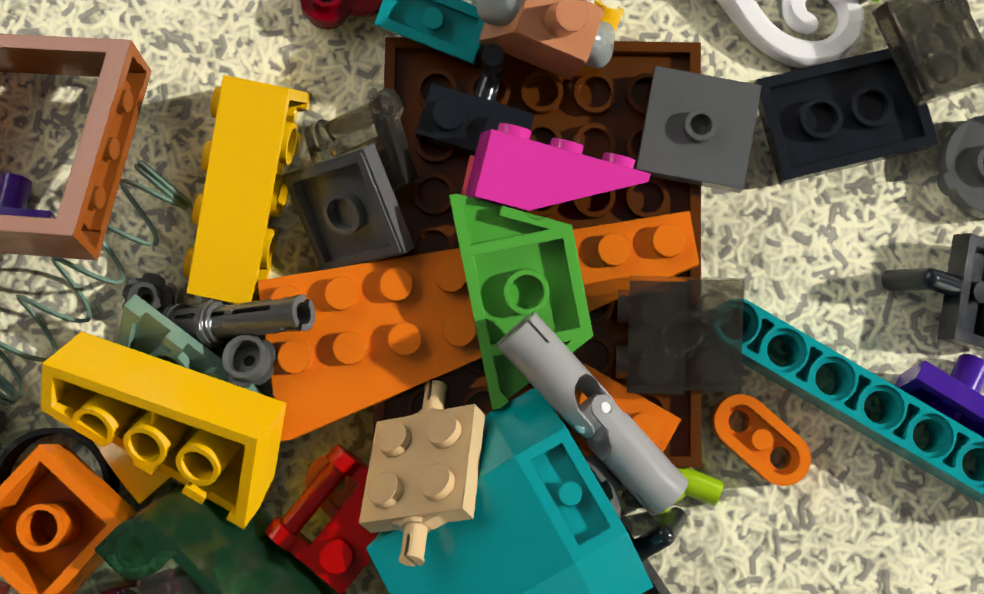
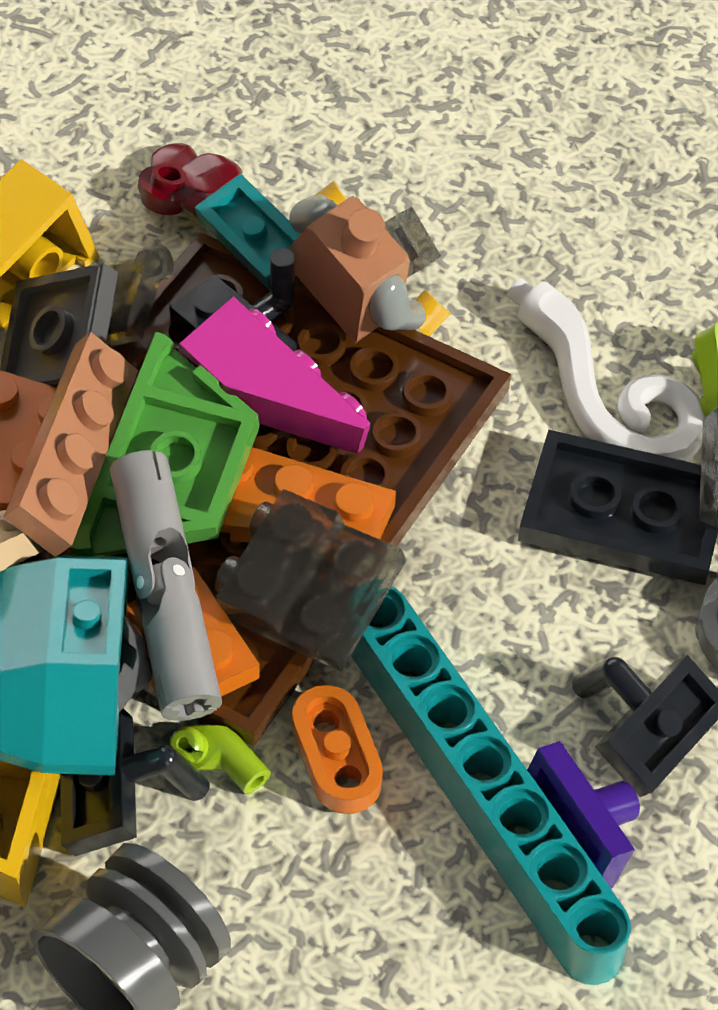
camera: 25 degrees right, 30 degrees down
(447, 331) = (71, 445): none -> nougat plate
(698, 129) = (454, 435): dark grey plate -> none

